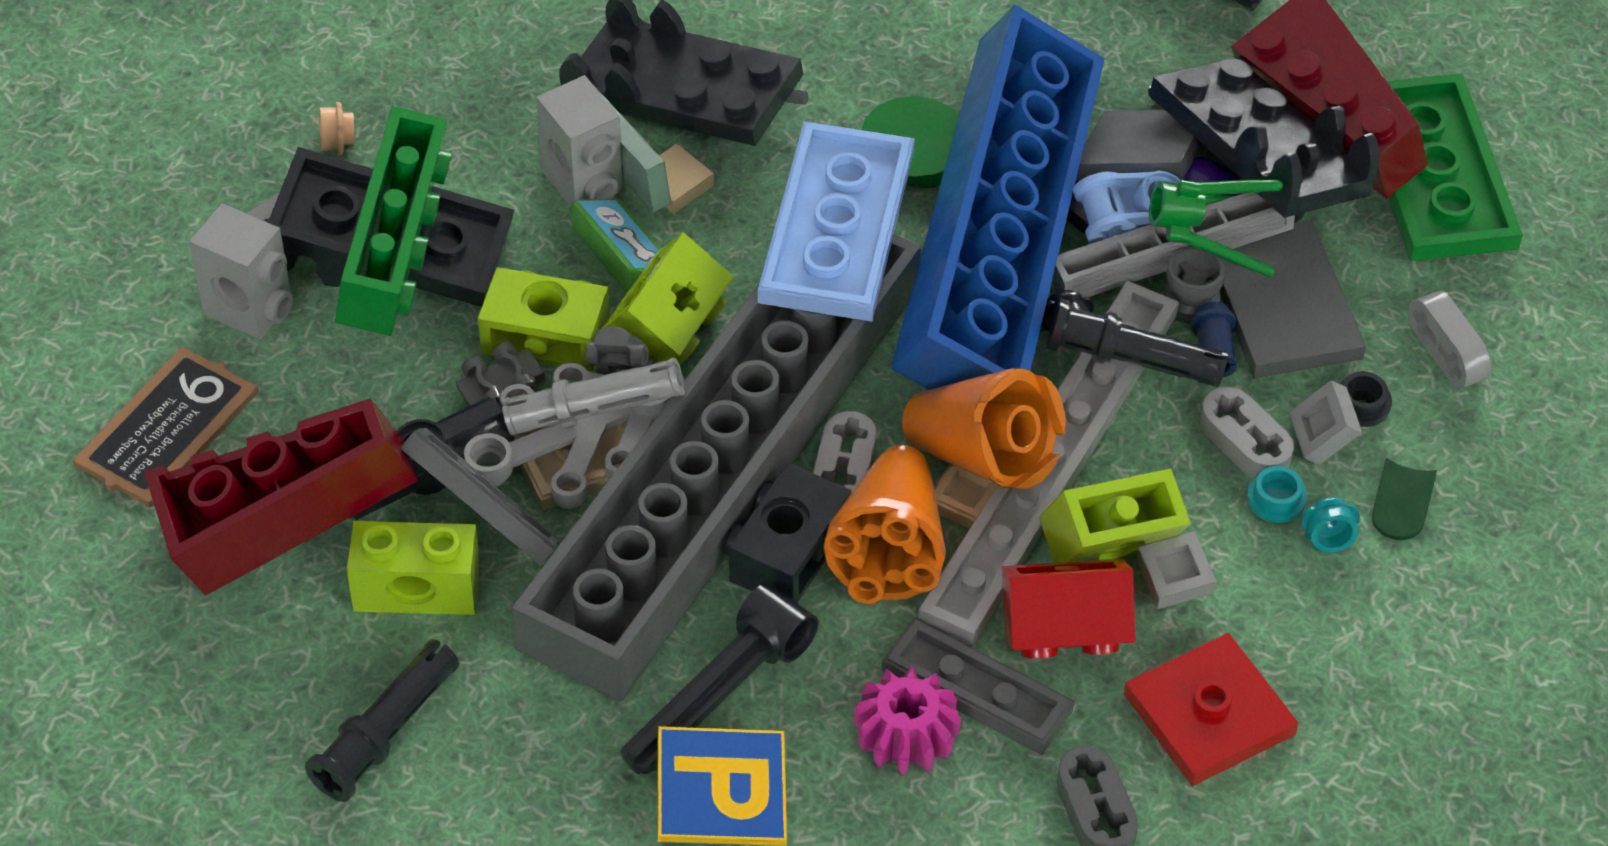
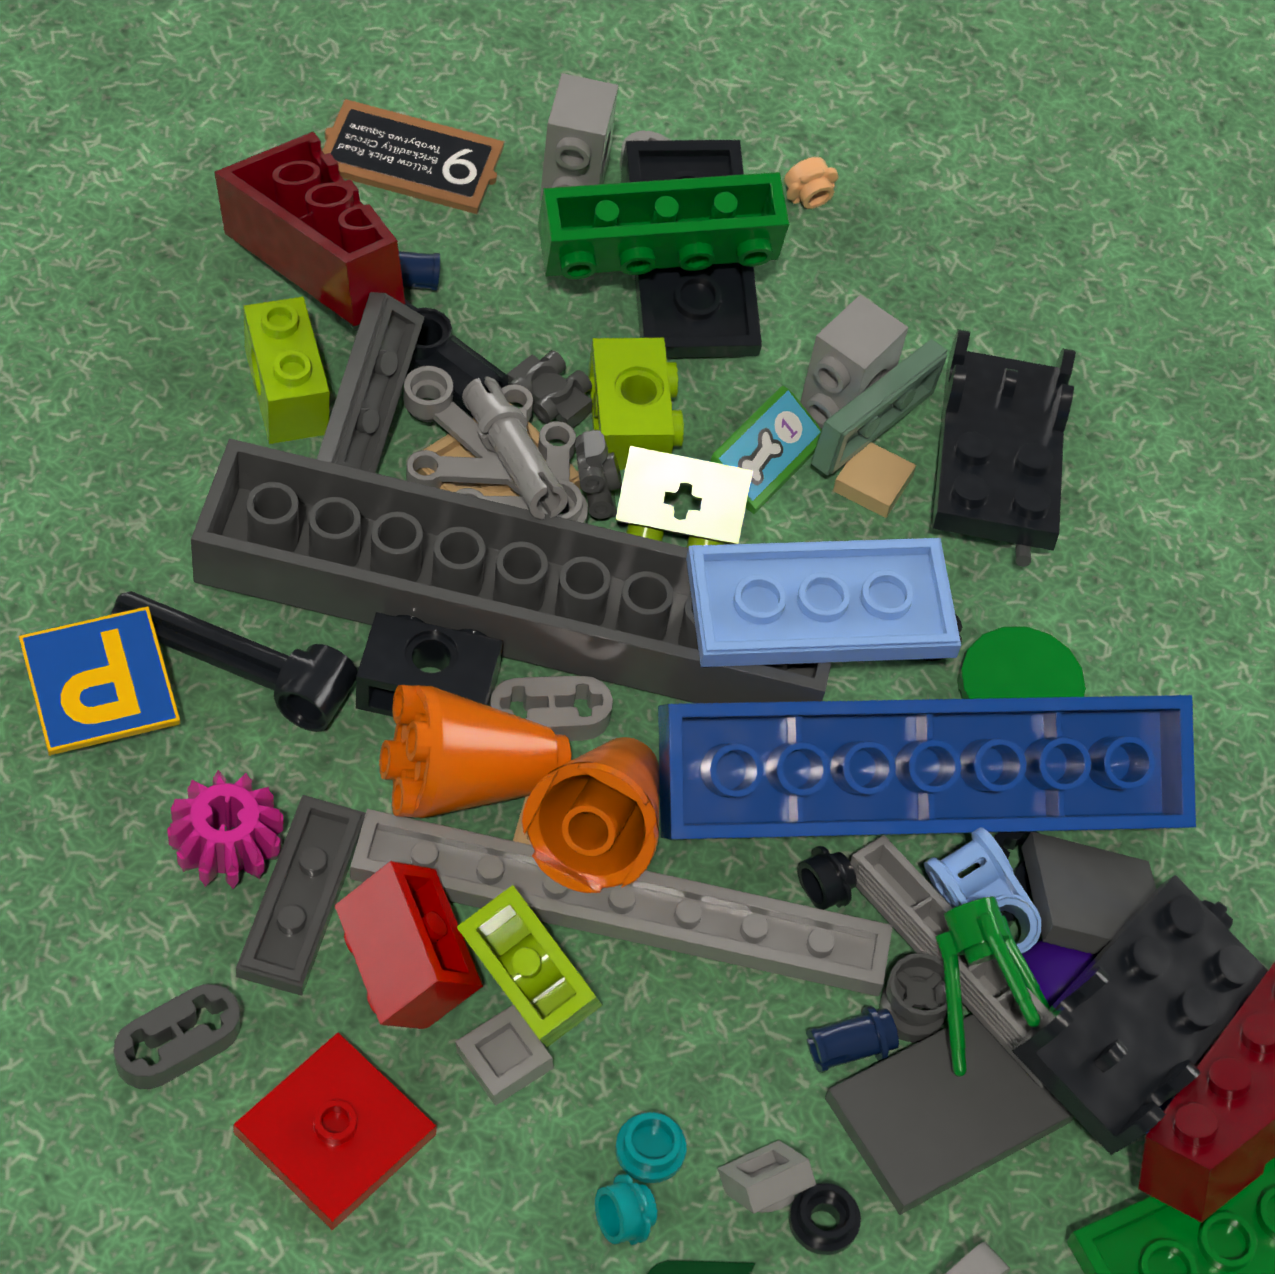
camera: 65 degrees right, 5 degrees up
(366, 738) = (89, 387): black pin -> none
(1110, 339) = (781, 912): black pin -> none
(1252, 429) = (742, 1108): light grey beam -> none

